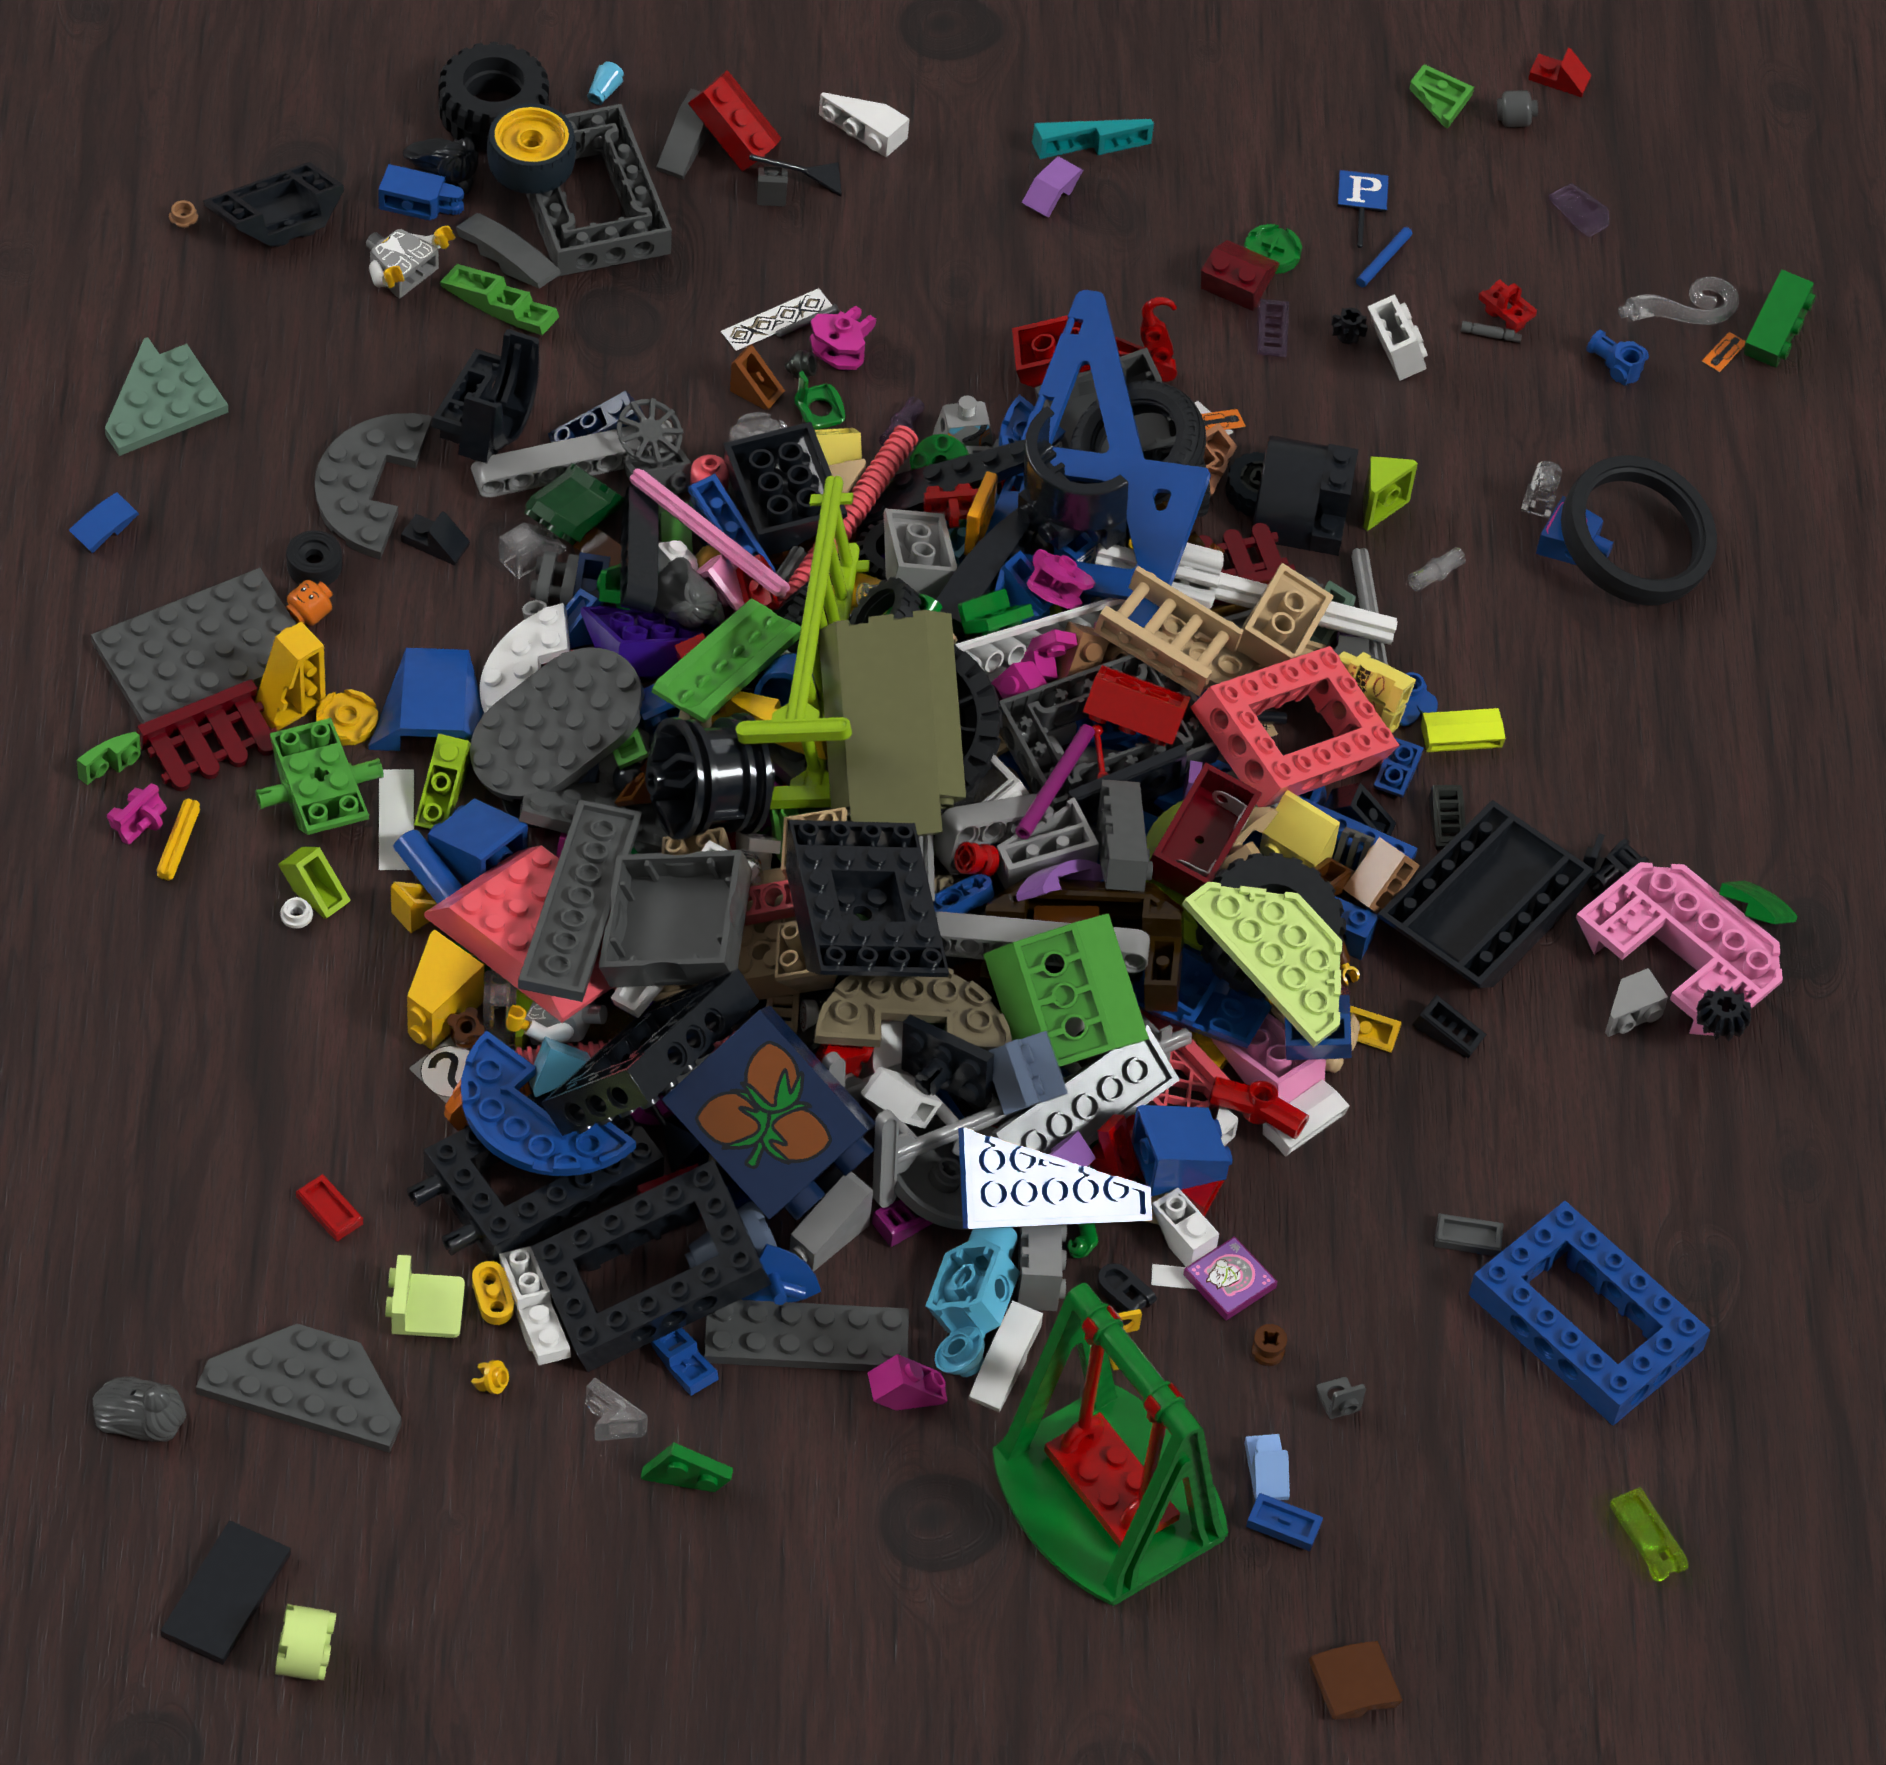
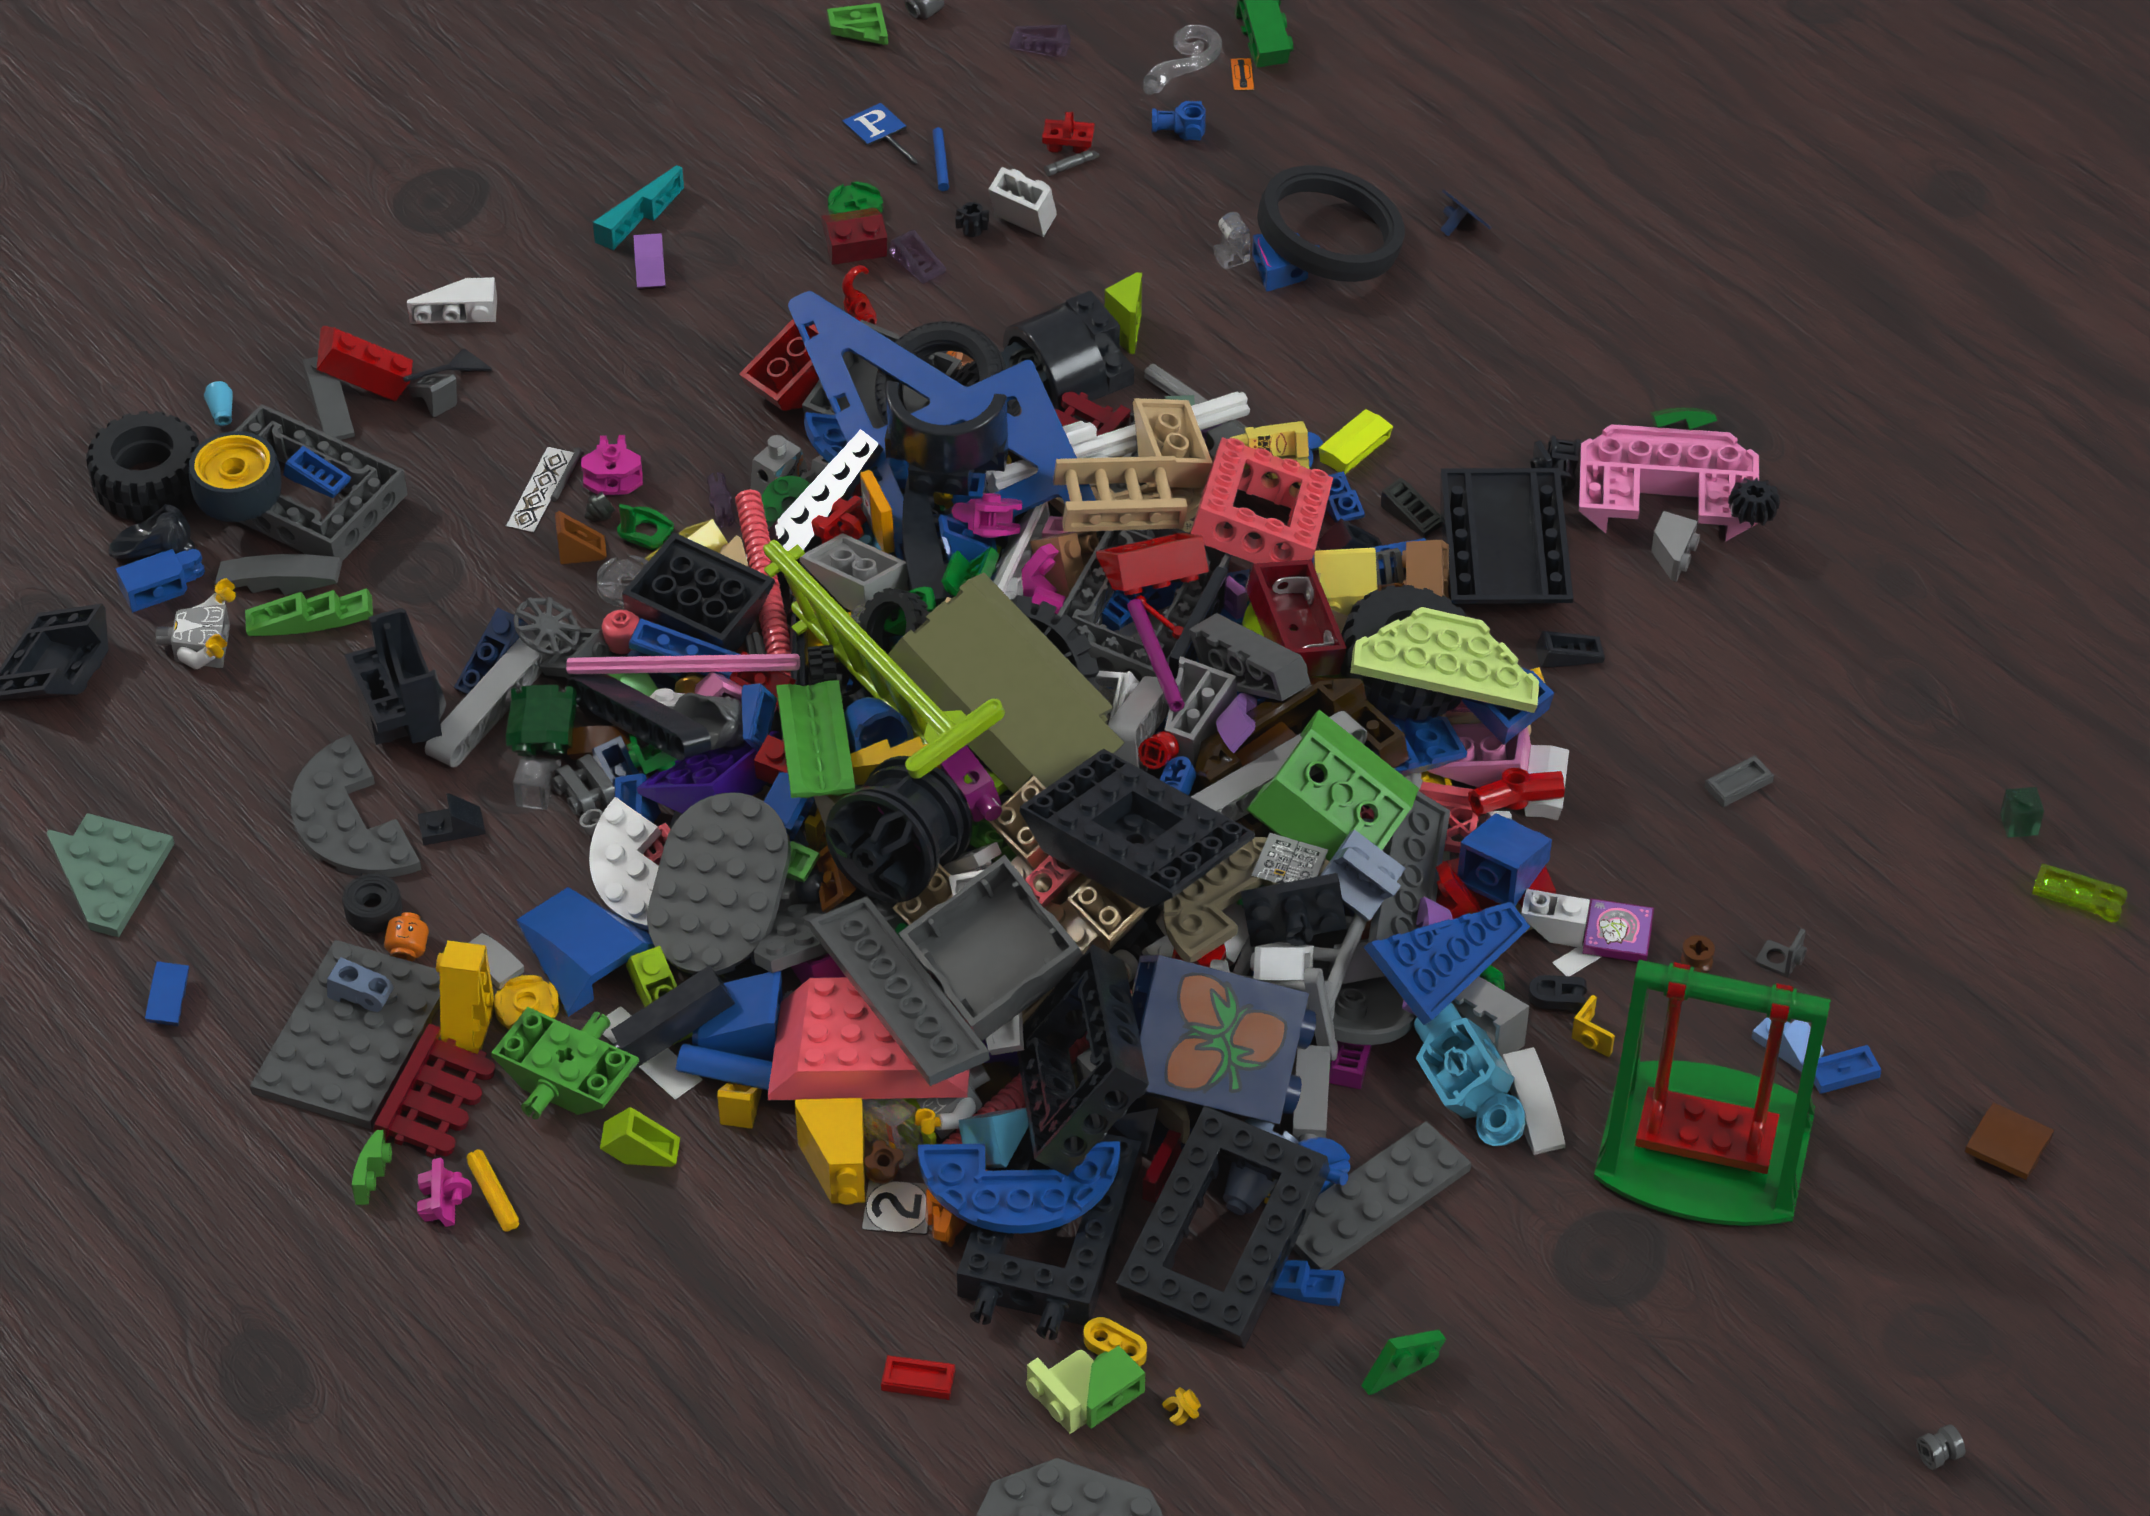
camera: 35 degrees left, 5 degrees down
(230, 613) = (358, 985): none -> sand blue leg
(296, 906) = (646, 1170): white plate -> none
(353, 665) = (502, 962): none -> light grey slope
(425, 802) = (673, 1016): none -> black brick
(446, 1319) = (1112, 1384): none -> bright green slope
(534, 1307) = (1164, 1333): white slope -> none
(599, 168) = (304, 457): none -> blue slope
(618, 1416) = (1310, 1357): clear slope -> none
(714, 599) = (757, 714): none -> blue slope
(794, 794) = (981, 792): none -> magenta torso
(906, 1384) = (1487, 1175): dark pink slope -> none
(979, 1019) = (1288, 860): none -> light grey sticker
(1436, 569) = (1215, 345): clear pin -> none
(1609, 1387) = (1872, 805): blue brick -> none
(1672, 1433) = (2022, 812): none -> clear green brick
(1773, 591) = (1456, 215): none -> dark blue shield

